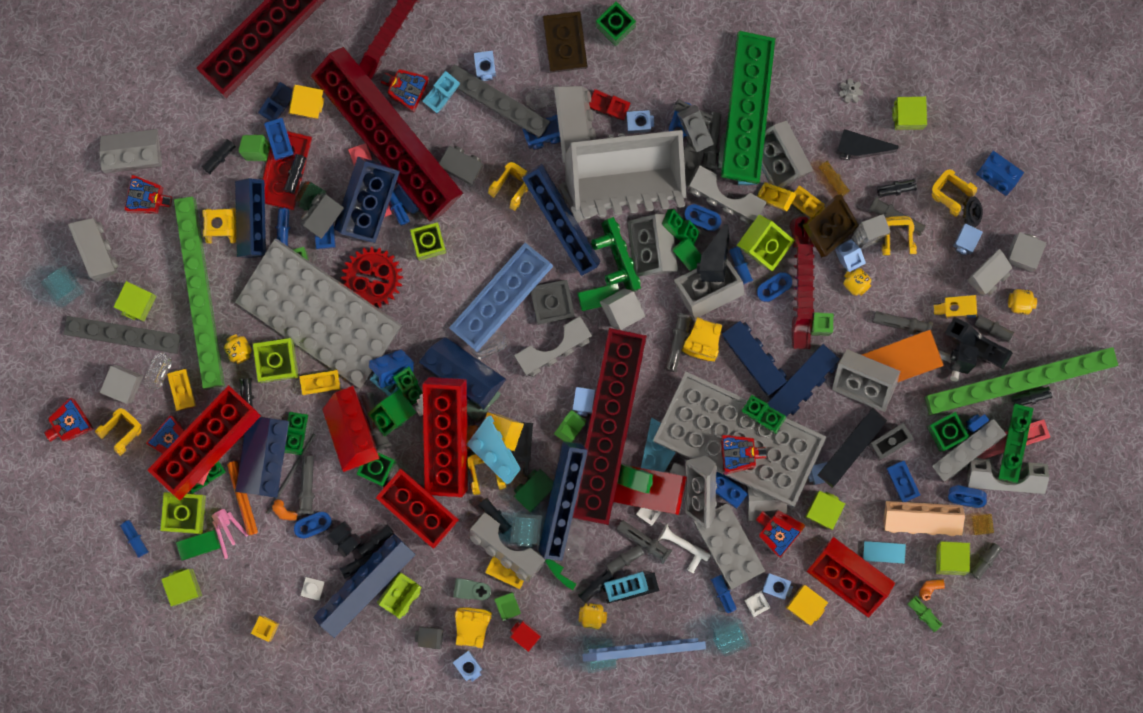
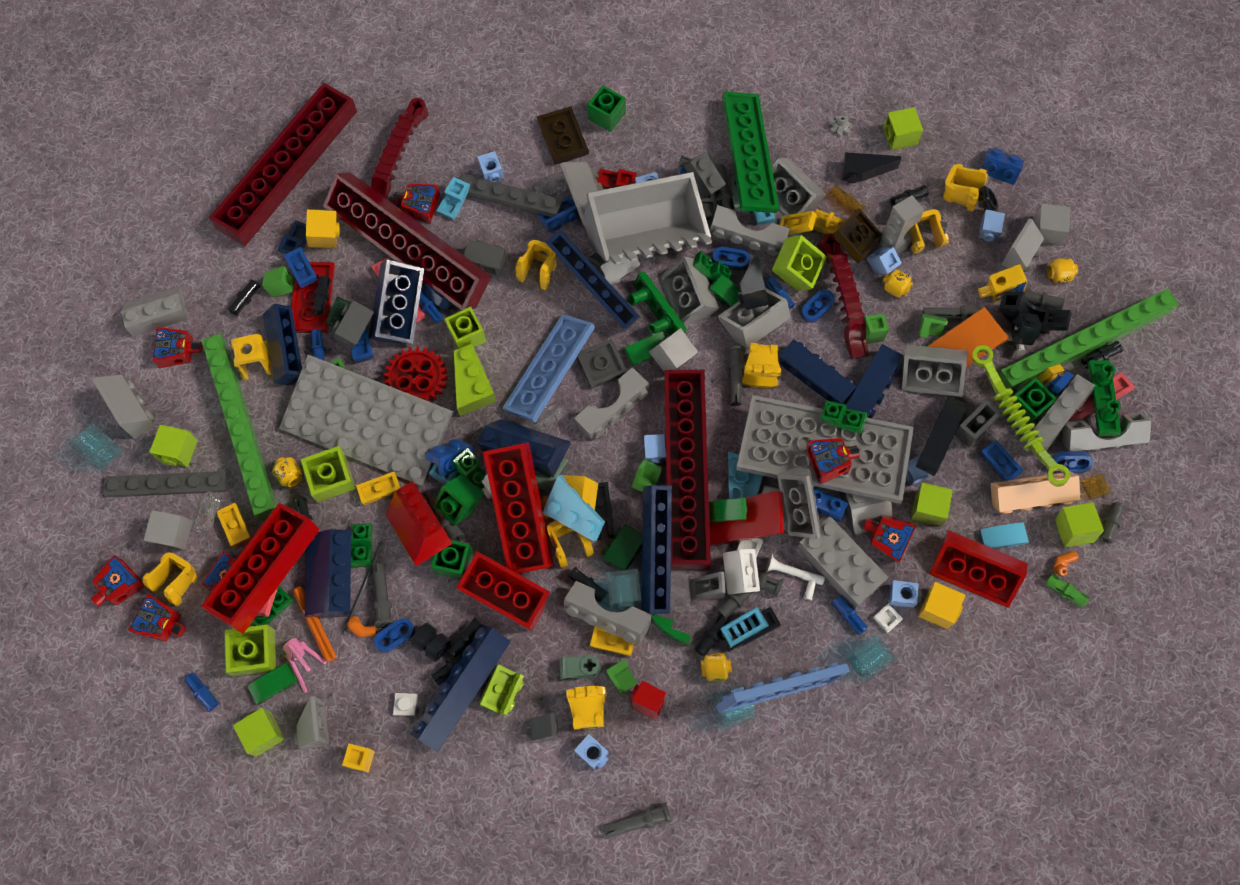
camera: 10 degrees left, 15 degrees down
(102, 466) = (156, 620): none -> torso
(228, 593) = (312, 725): none -> light grey slope
(424, 295) = (472, 384): none -> lime wedge
(602, 542) = (708, 587): none -> light grey slope
(635, 536) = (741, 571): none -> white panel
(877, 331) = (932, 325): none -> bright green panel
(925, 447) = (1002, 394): none -> lime piece
(974, 408) = (1050, 374): none -> yellow plate

